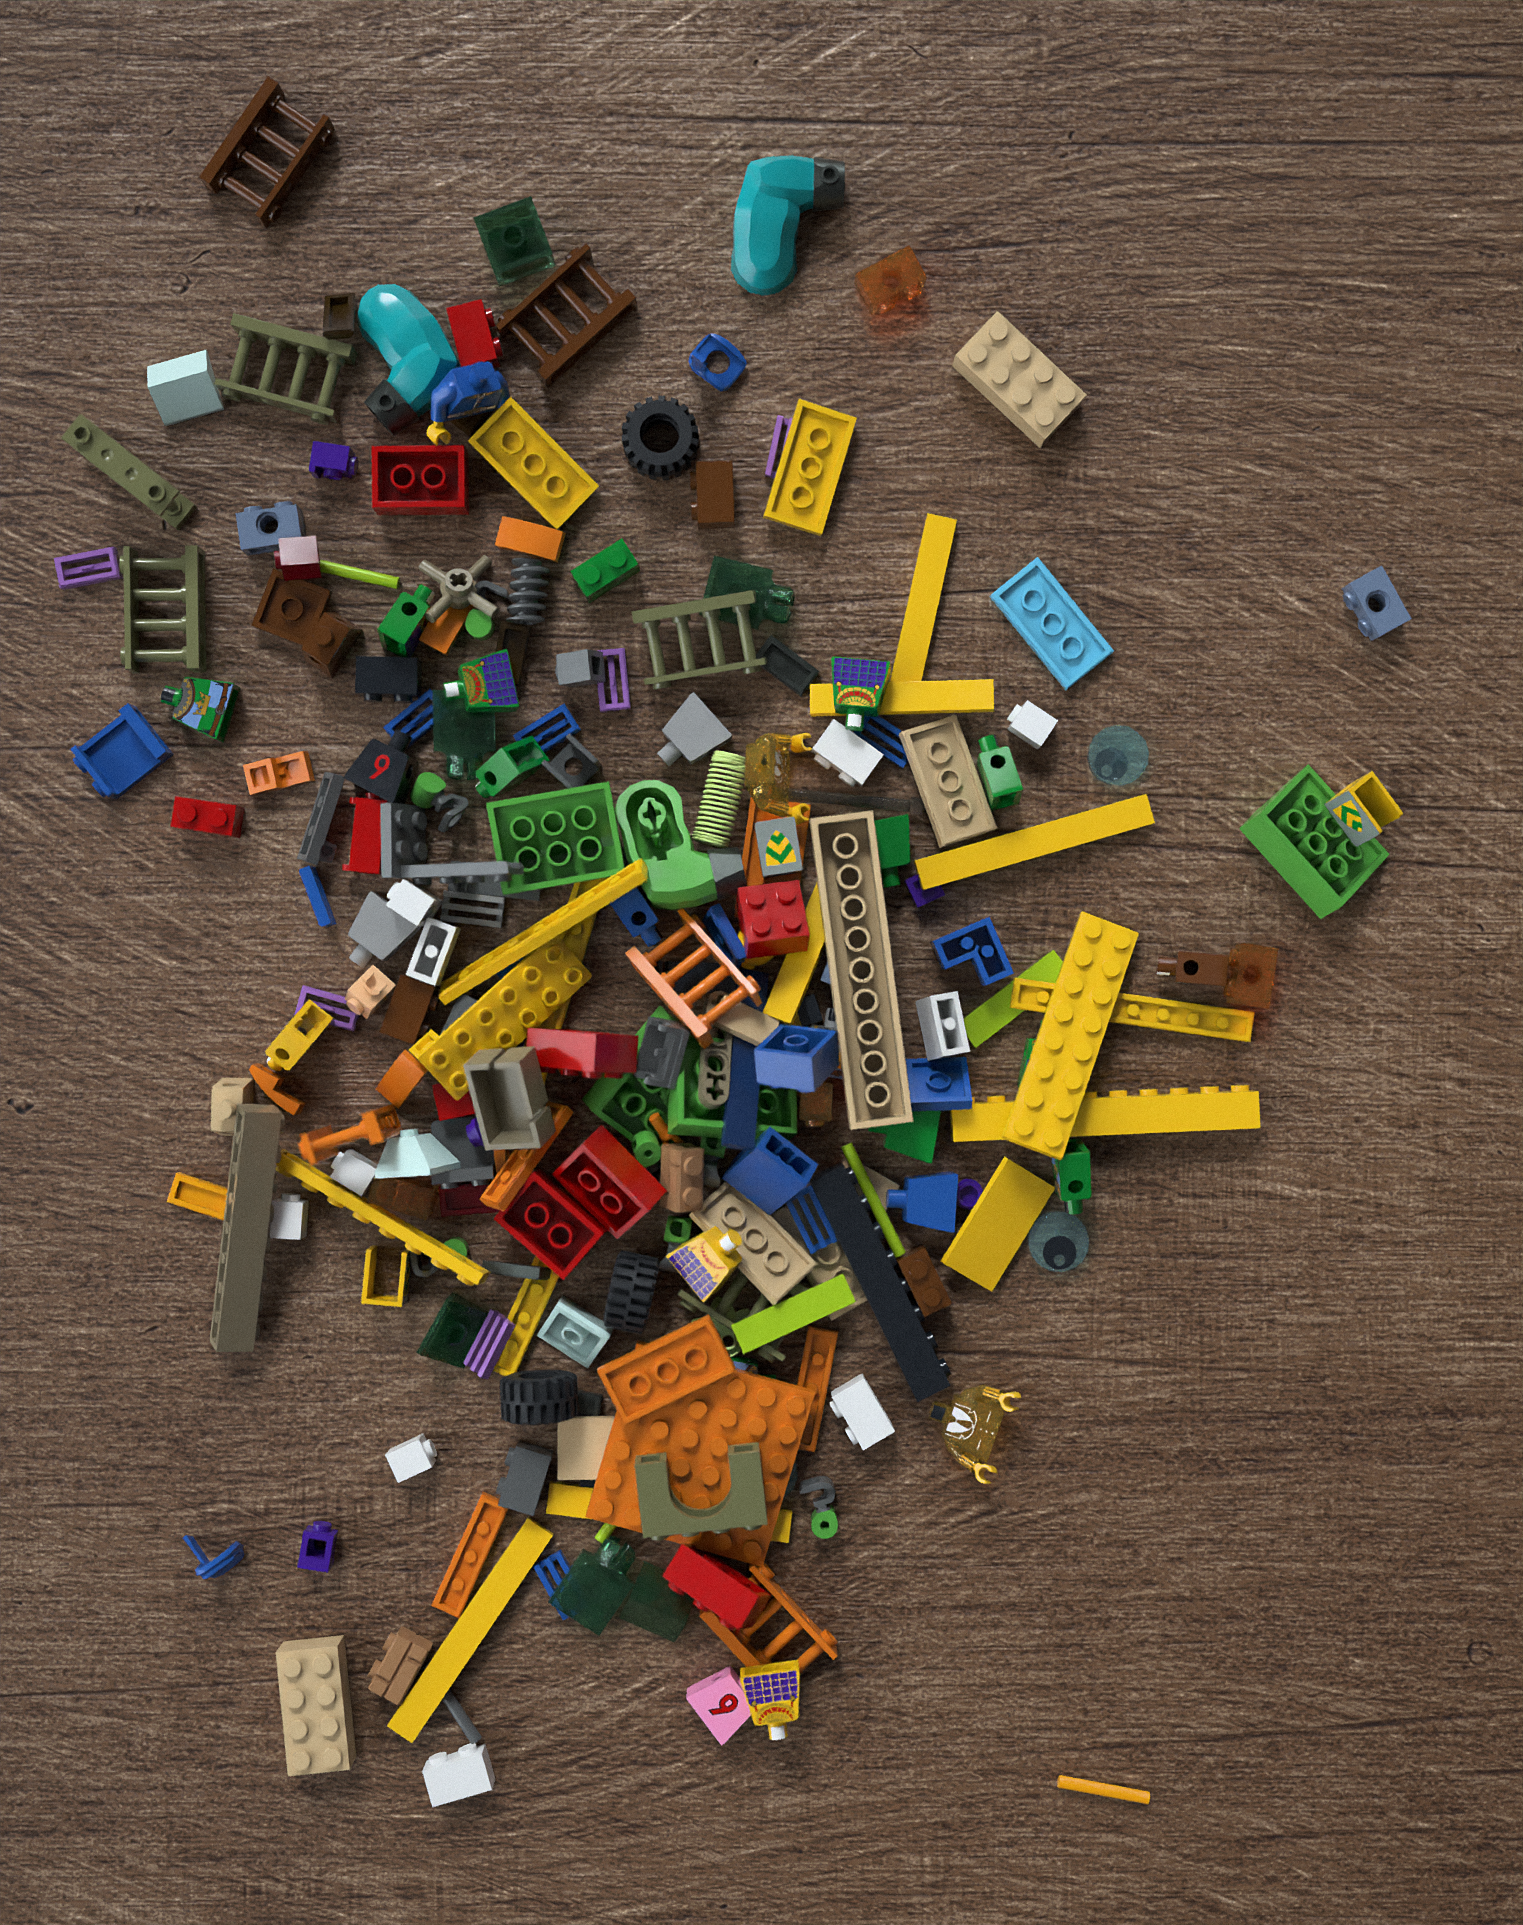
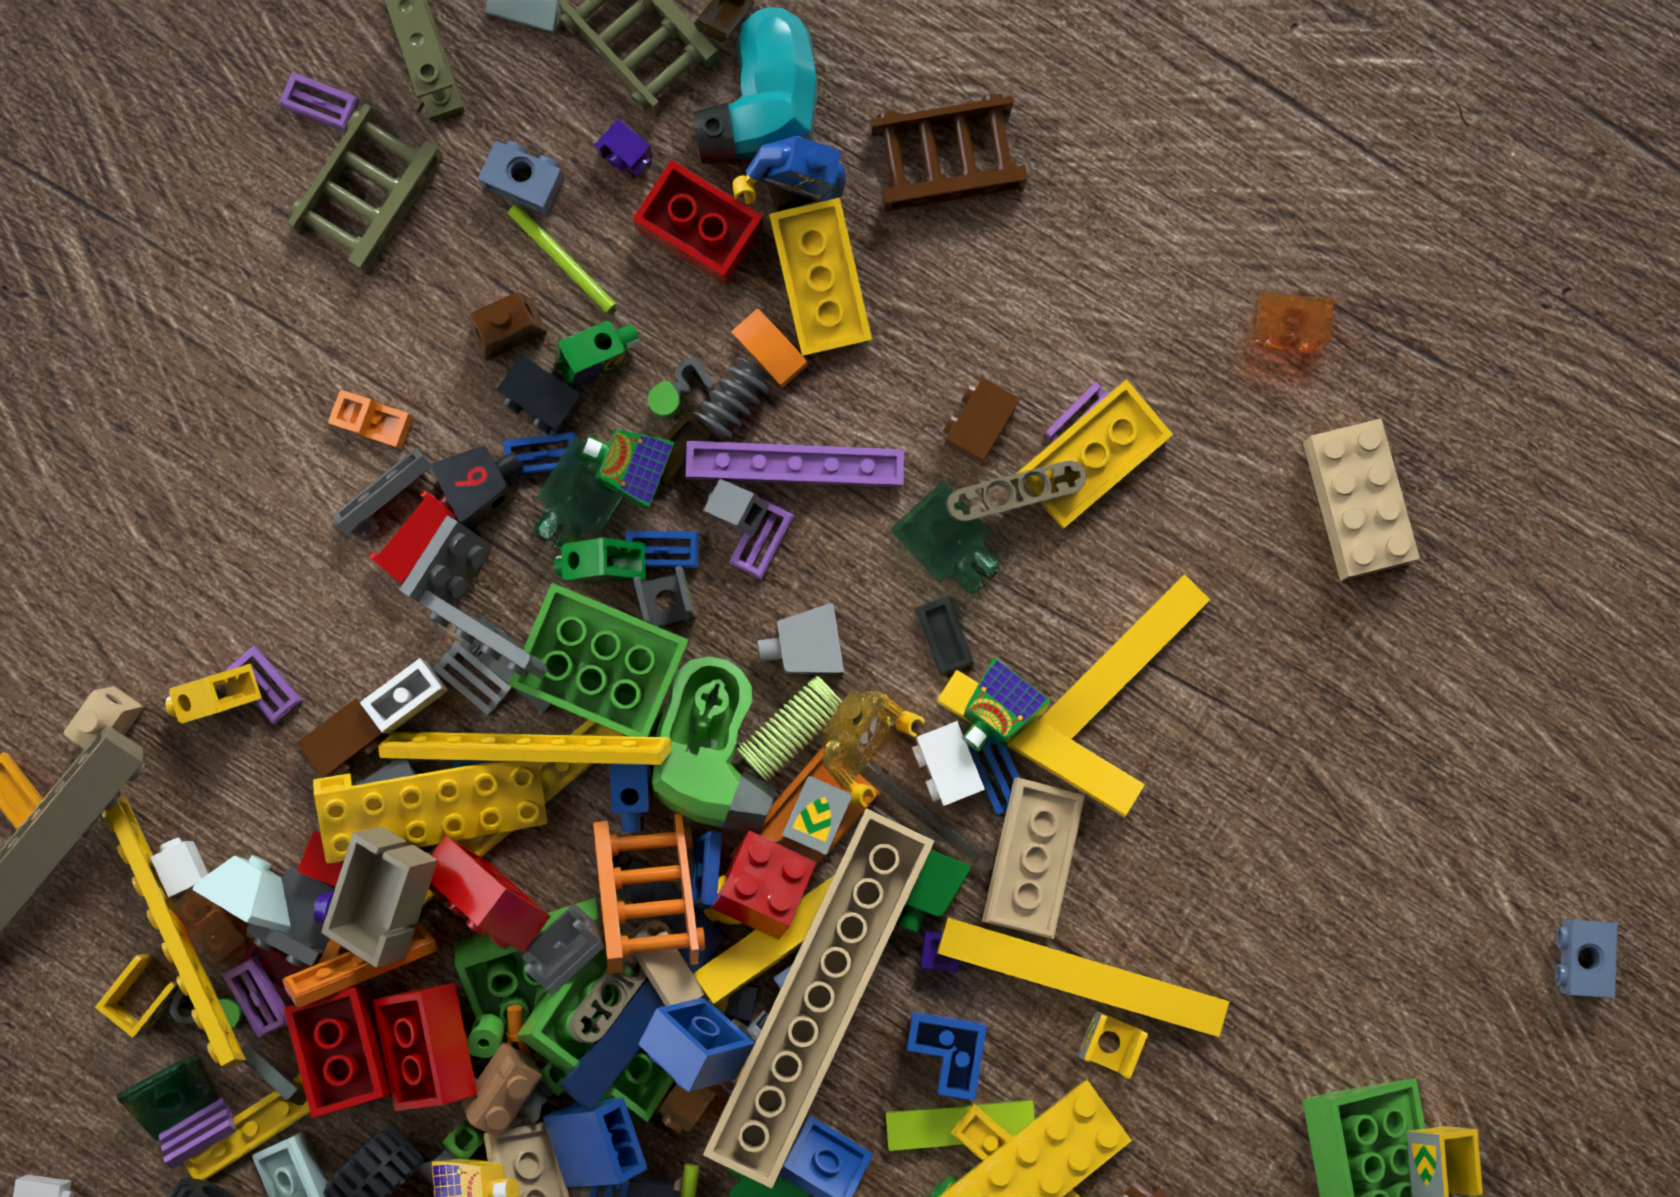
camera: 30 degrees right, 5 degrees down
(122, 753) = (230, 302): blue panel -> none
(203, 705) = (340, 306): torso -> none
(207, 817) = (270, 418): red brick -> none
(270, 1083) = (155, 723): orange slope -> none
(289, 1217) = (84, 871): white brick -> none
(290, 608) = (490, 265): reddish brown plate -> none
(298, 558) = (528, 222): brick -> none
(317, 896) = (326, 567): blue tile -> none
(369, 992) = (313, 696): light nougat brick -> none
(376, 1126) = (224, 837): orange fence -> none
(379, 931) = (366, 640): light grey torso -> none
(401, 1079) = (287, 804): orange slope -> none
(413, 902) = (416, 634): white brick -> none
(429, 792) = (505, 534): leg -> none
(445, 629) = (634, 377): orange slope -> none
(458, 588) = (666, 352): dark tan bar -> none
(473, 334) = (844, 114): red brick -> none
(473, 1215) = (262, 993): none -> medium lavender tile
(514, 241) = (942, 50): clear green brick -> none
(602, 610) = (795, 464): none -> medium lavender plate
(605, 570) = (823, 425): green brick -> none
(657, 413) = (973, 303): black tyre -> none
(710, 610) = (902, 532): olive fence -> none
(714, 343) = (1074, 270): blue piece -> none
(769, 216) = (1211, 184): teal piece -> none
(769, 527) = (1016, 492): none -> dark tan beam
(942, 1025) = (868, 1106): white brick -> none
(1000, 785) = (1085, 898): green torso -> none
(1031, 724) = (1155, 854): white brick -> none
(1051, 623) = (1241, 765): medium azure tile -> none
(1098, 872) = (1129, 1049): none -> yellow piece
(1117, 755) = (1224, 943): clear light blue tile -> none

